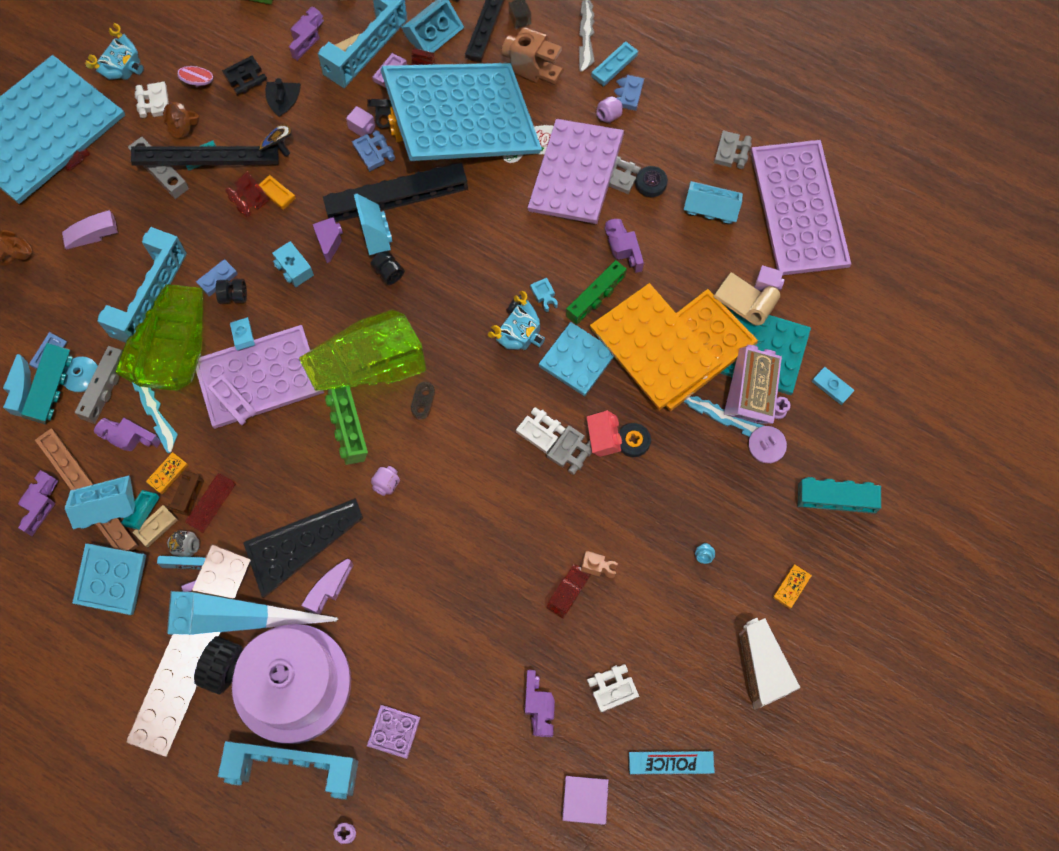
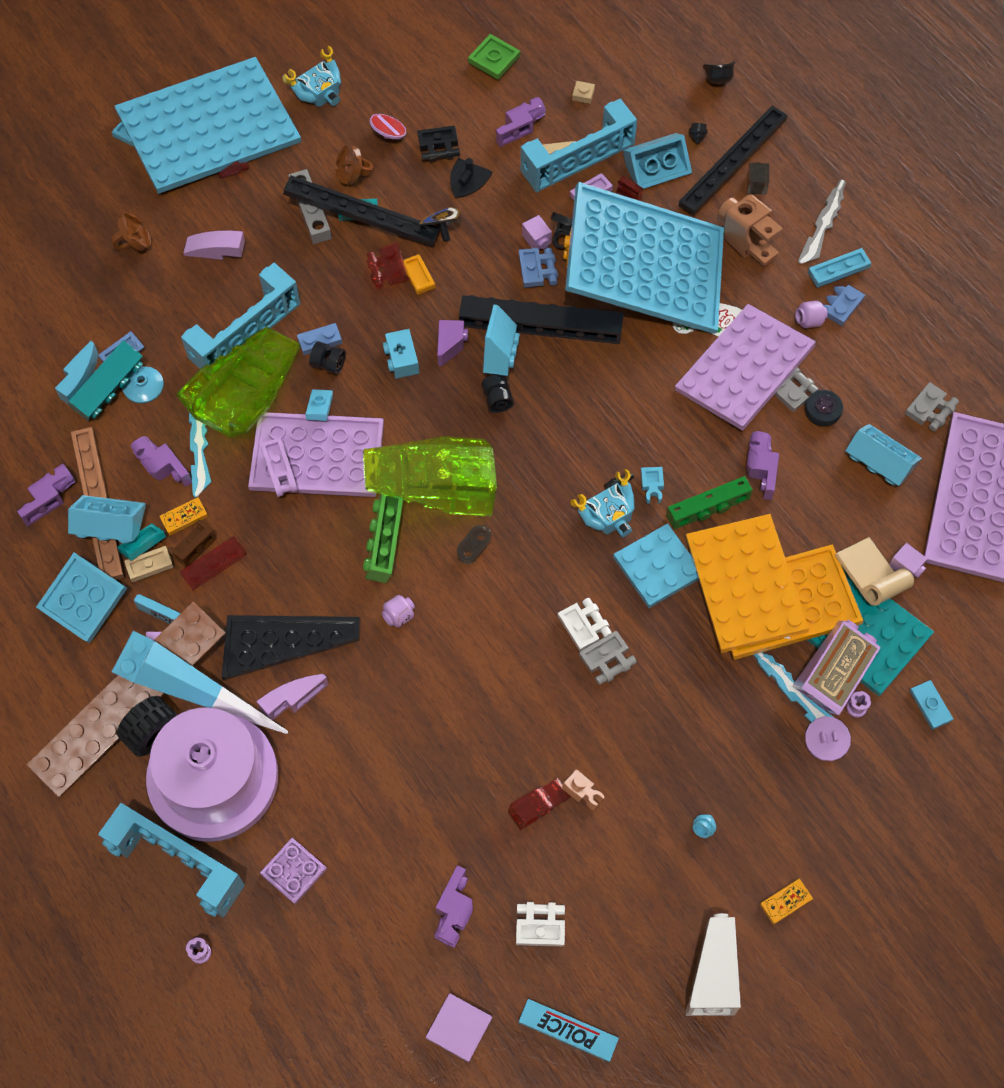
camera: 25 degrees right, 5 degrees down
(99, 393) = (153, 410): light grey piece -> none
(158, 99) = (341, 135): white plate -> none
(183, 544) = (168, 592): light grey head -> none
(604, 433) = (650, 654): coral brick -> none
(643, 443) = (670, 679): black bush -> none
(839, 495) = (883, 825): teal brick -> none

